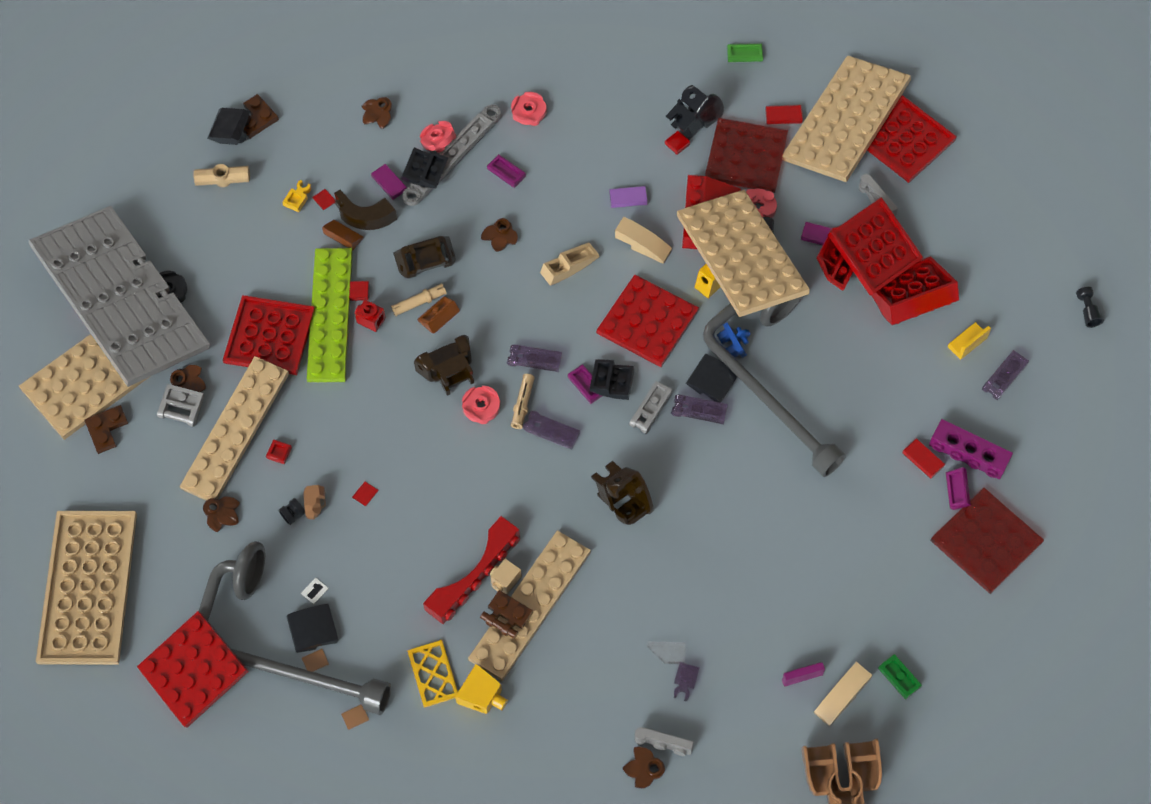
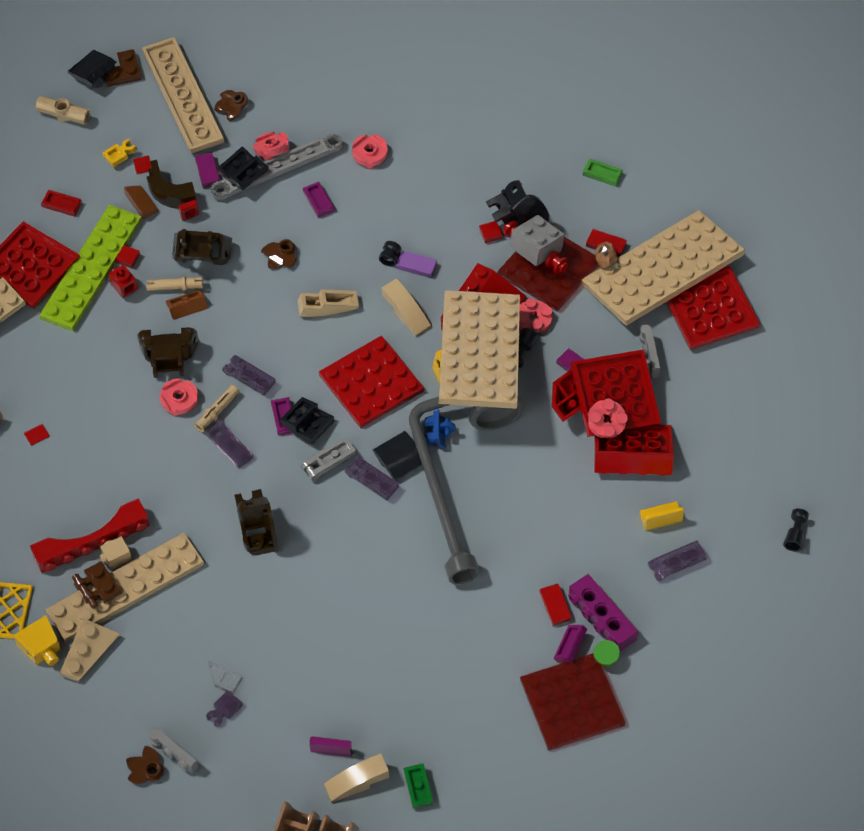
camera: 25 degrees right, 5 degrees down
(267, 264) = (61, 203): none -> red tile
(327, 120) = (182, 95): none -> tan plate
(393, 226) = (188, 210): none -> red tile
(528, 679) = (86, 649): none -> tan wing
(600, 193) = (389, 254): none -> black wheel
(730, 136) = (538, 242): none -> light grey brick
(792, 125) = (605, 254): none -> medium nougat rock
(888, 265) = (617, 417): none -> coral plate
(996, 484) = (606, 653): none -> bright green piece

